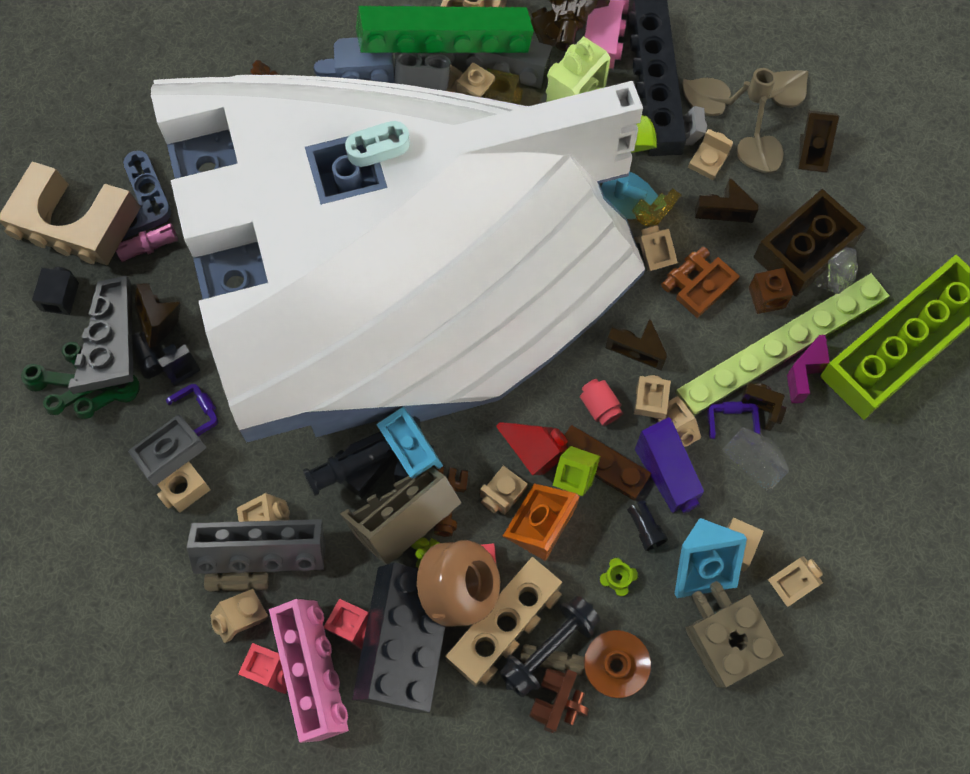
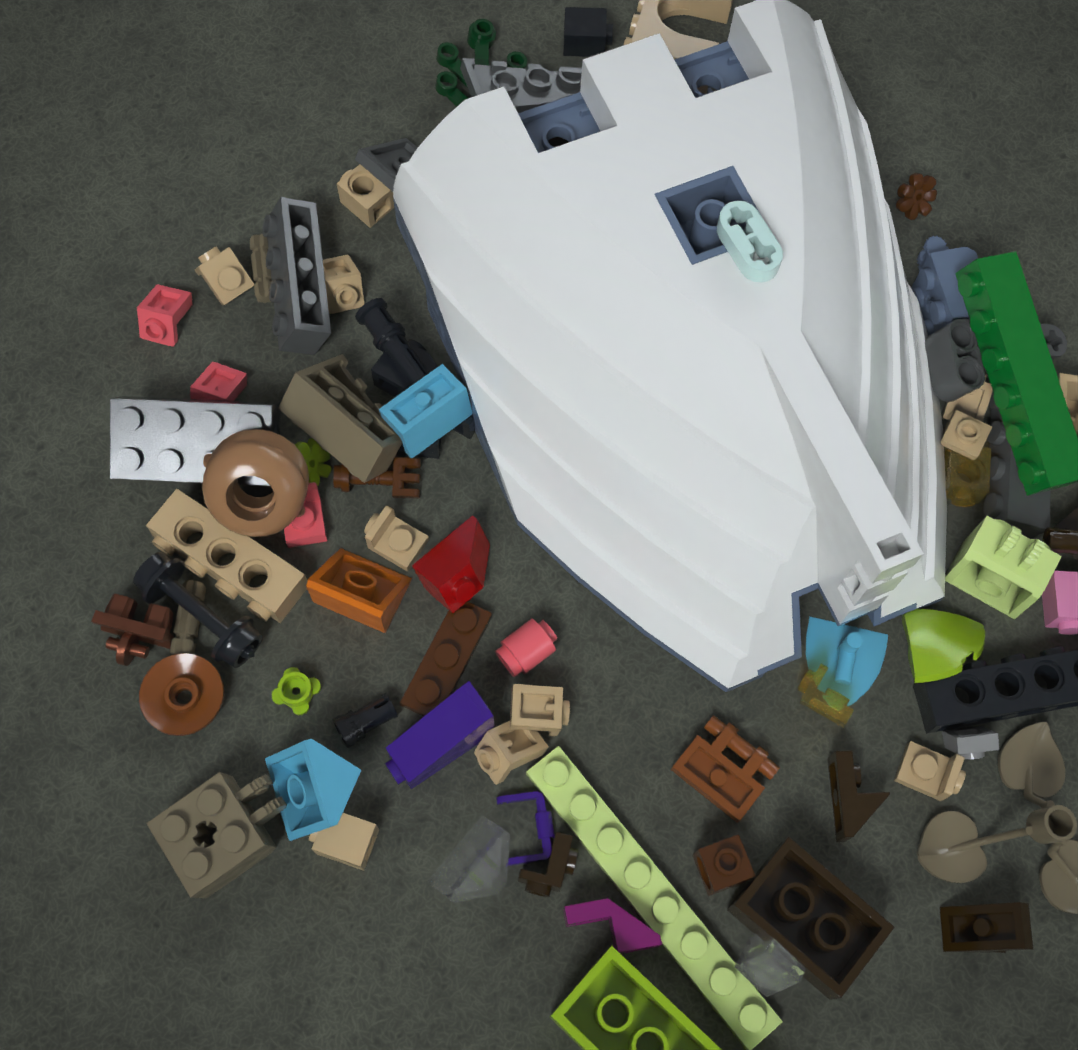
camera: 80 degrees right, 0 degrees up
(309, 670) = (156, 348): bright pink brick -> none
(576, 470) = (419, 615): lime brick -> none
(644, 350) = (613, 699): dark brown slope -> none
(656, 248) = (765, 702): tan bracket -> none
(796, 580) = (305, 924): tan bracket -> none

